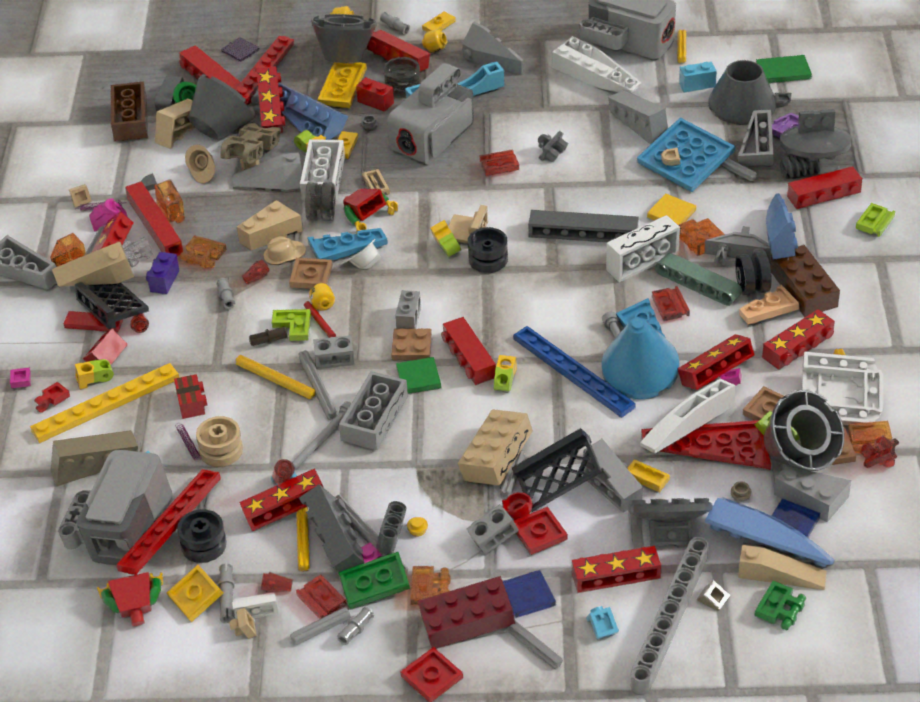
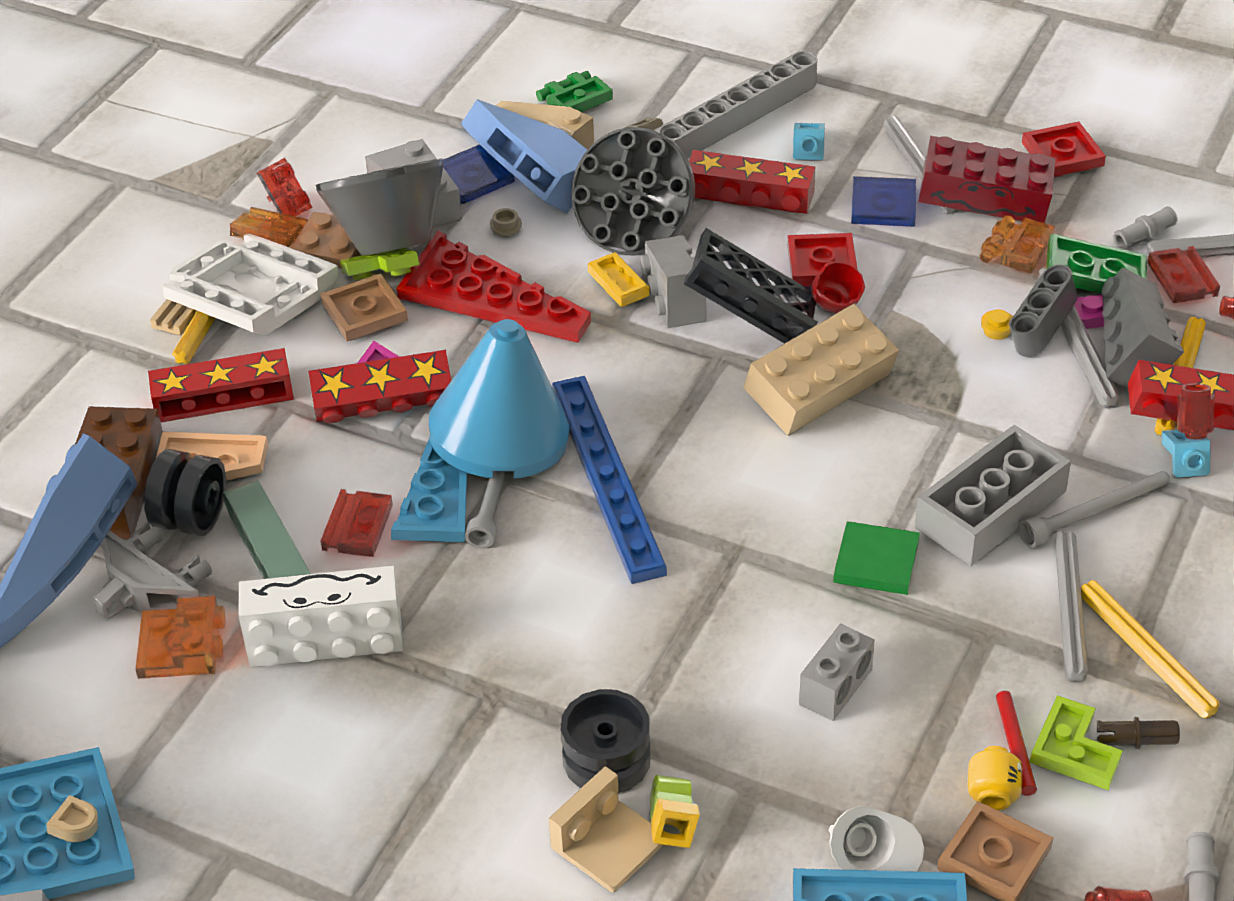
camera: 155 degrees left, 0 degrees up
(333, 352) = (1017, 645): light grey brick -> none
(411, 344) = (864, 612): medium nougat plate -> none
(468, 350) = (766, 560): red brick -> none
(492, 529) = (893, 264): light grey brick -> none
(505, 373) = (726, 496): lime leg -> none
(579, 225) = (380, 739): dark grey brick -> none
(673, 207) = (181, 720): yellow tile -> none
(691, 414) = (528, 293): white wedge -> none

